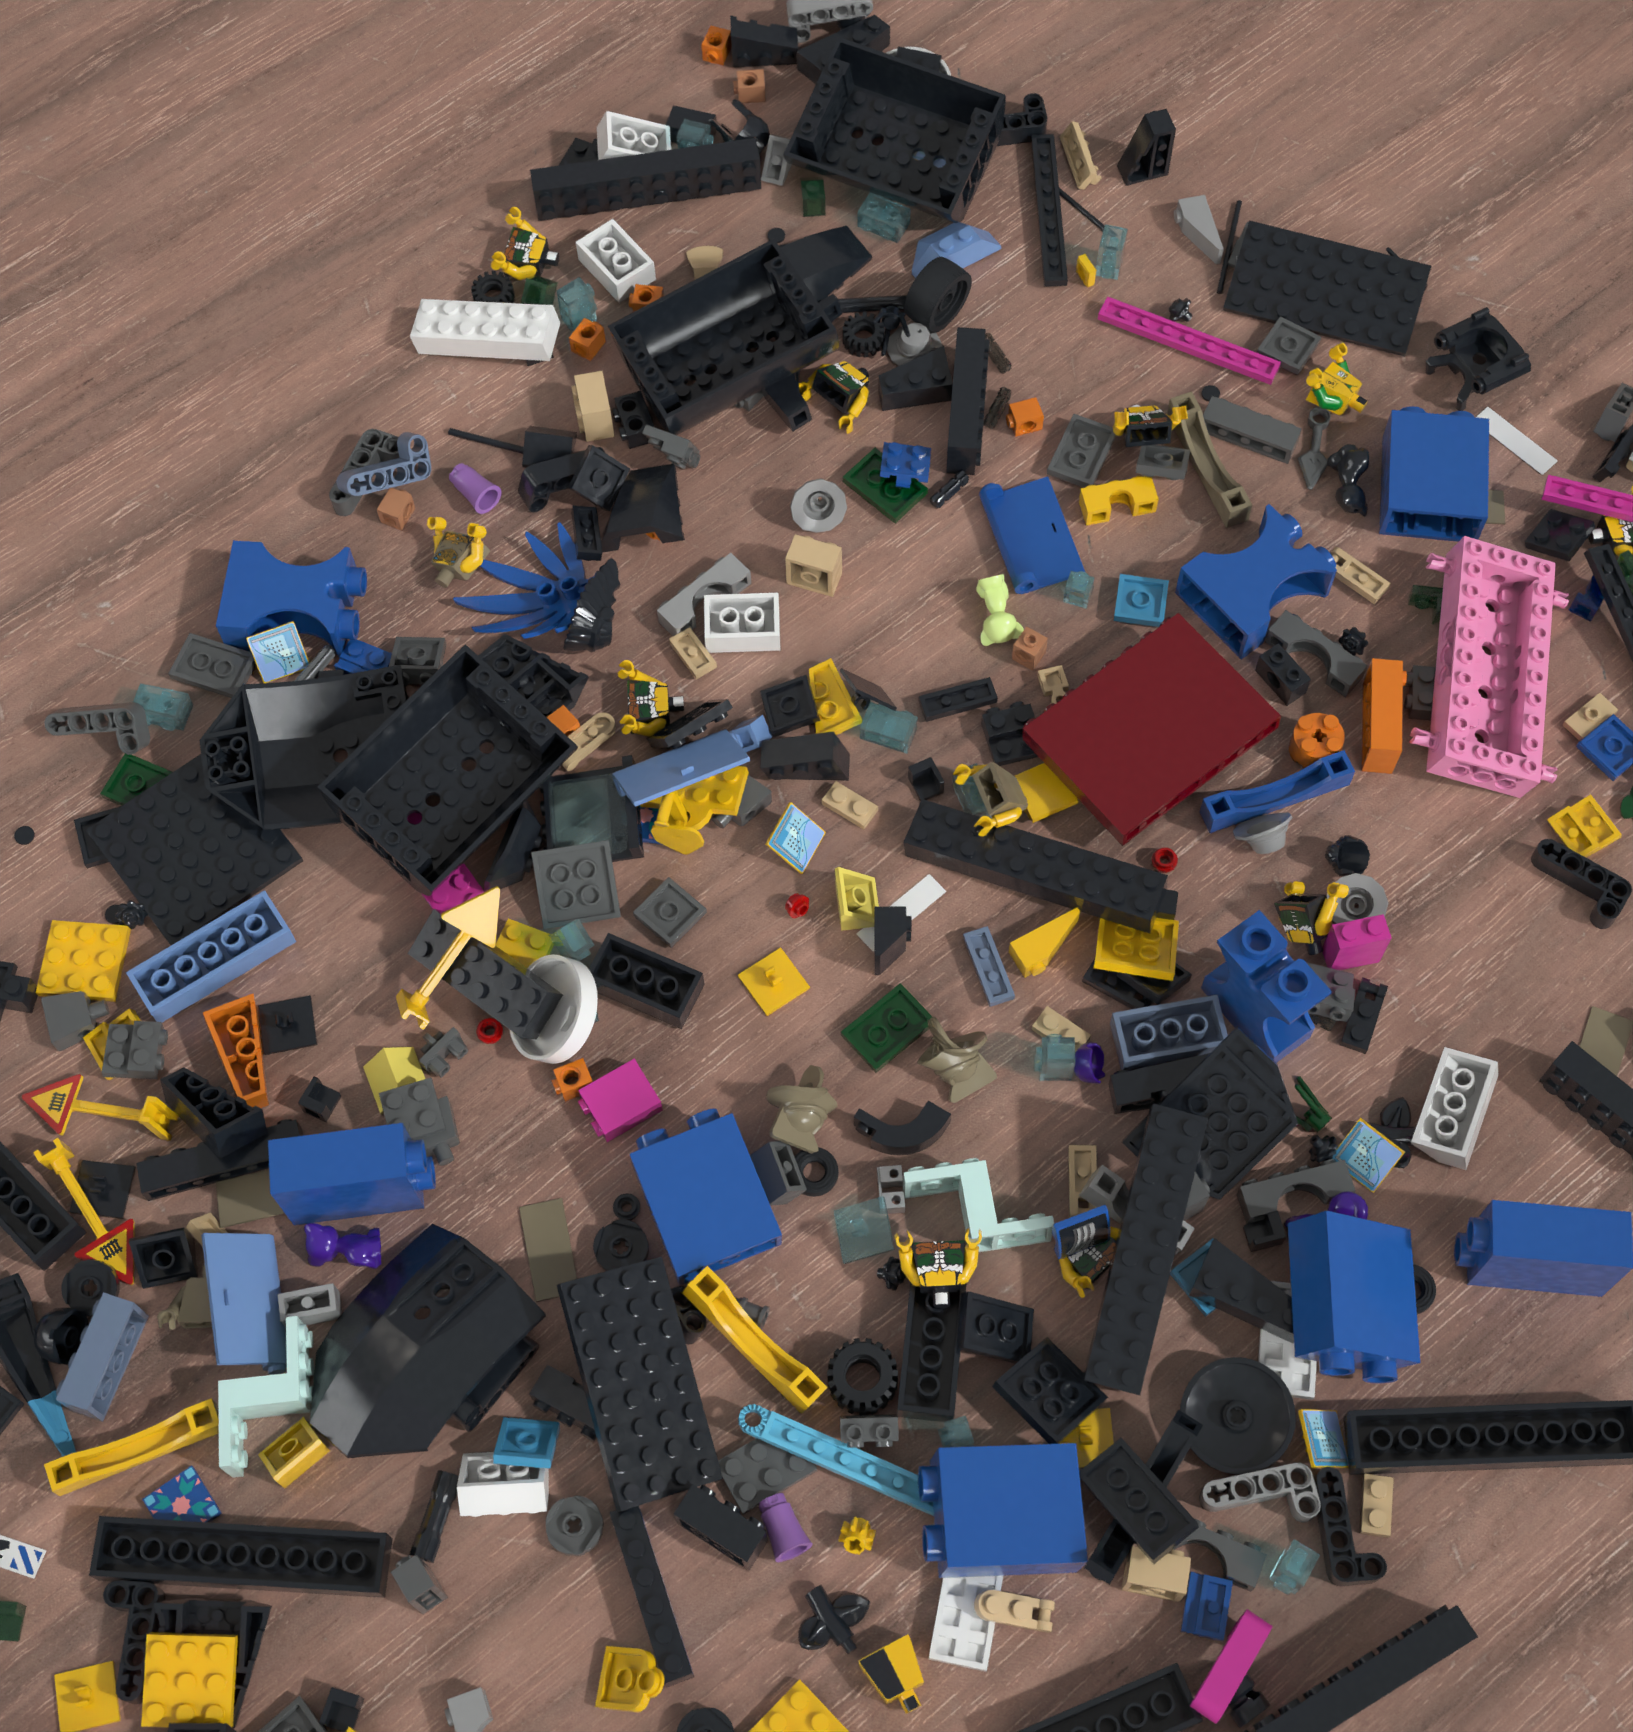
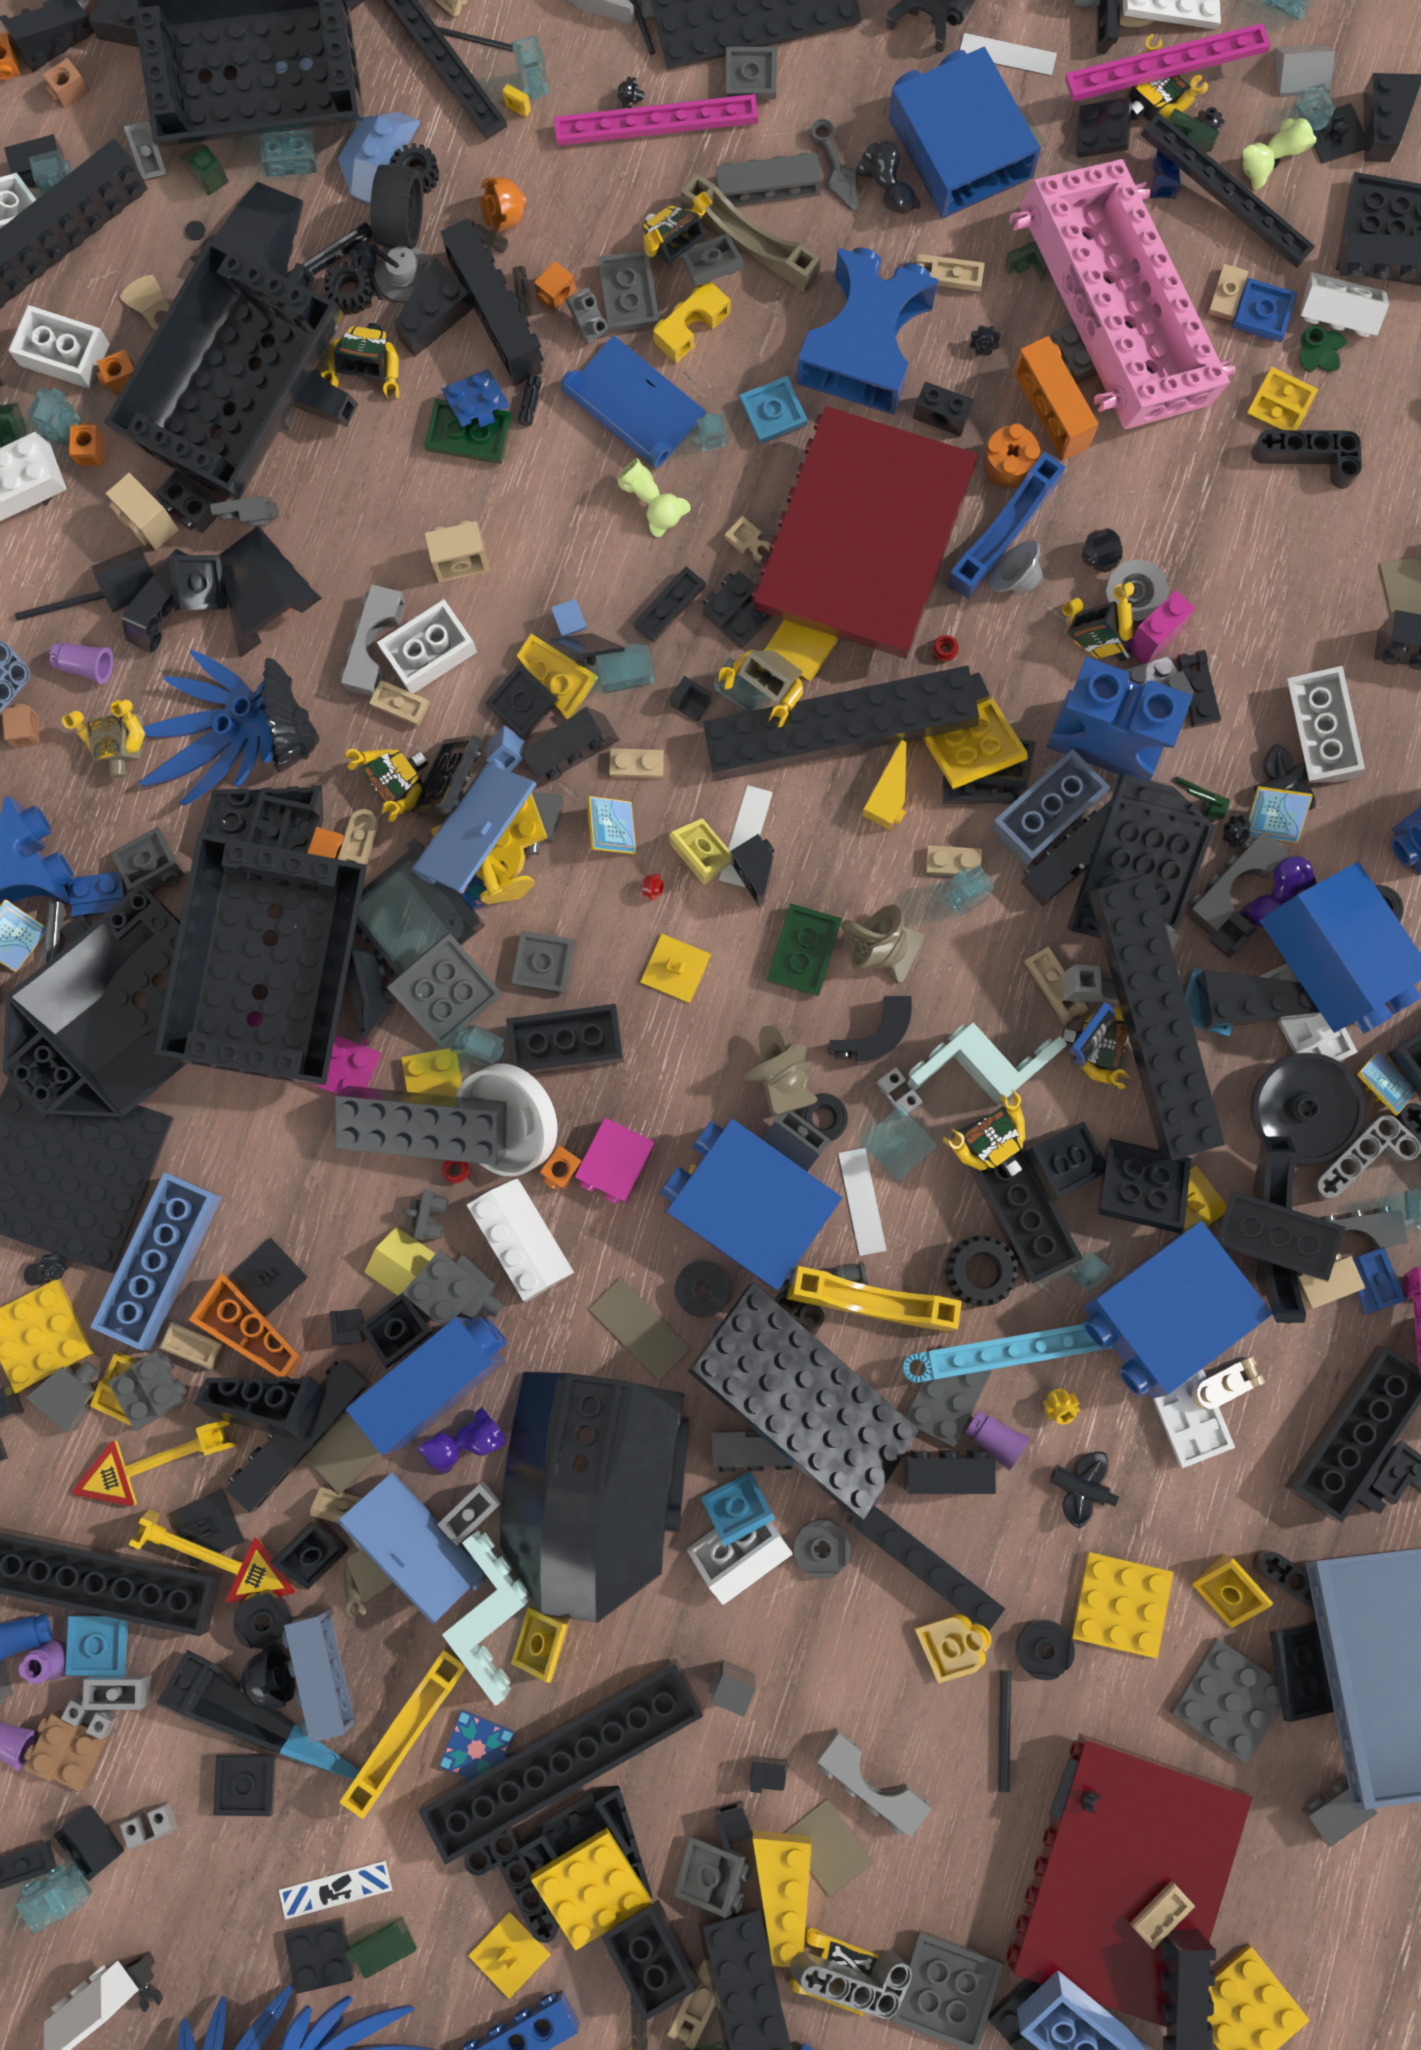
camera: 30 degrees left, 15 degrees up
(191, 1039) = (191, 1345): none -> tan plate
(355, 1115) = (396, 1329): none -> black slope
(399, 1687) = (768, 1774): none -> black panel
(429, 1535) = (701, 1619): black axle -> none
(475, 919) = (382, 1086): yellow piece -> none
(501, 1116) = (520, 1239): none -> white slope
(586, 533) = (222, 644): black plate -> none
(624, 1199) = (673, 1250): black plate -> none
(753, 128) = (104, 127): black piece -> none
(802, 1261) = (862, 1201): none -> white sticker
(818, 514) = (426, 495): light grey hat -> none
(869, 662) = (568, 618): none -> medium blue panel
(869, 1428) = (1017, 1312): dark grey plate -> none
(892, 1273) = (947, 1165): black plant -> none
(895, 1673) = (1163, 1497): torso -> none
(981, 270) = (420, 156): none -> black tyre
(988, 966) = (855, 840): sand blue plate -> none
(1024, 336) = (502, 203): none -> orange cylinder
(1029, 648) = (704, 516): nougat brick -> none
(1035, 450) = (586, 315): none -> dark grey hips
(1089, 1063) = (998, 873): dark purple hair -> none
(1210, 391) = (707, 163): black piece -> none
(1294, 635) = (989, 371): dark grey arch -> none
(1335, 387) = (821, 90): torso -> none

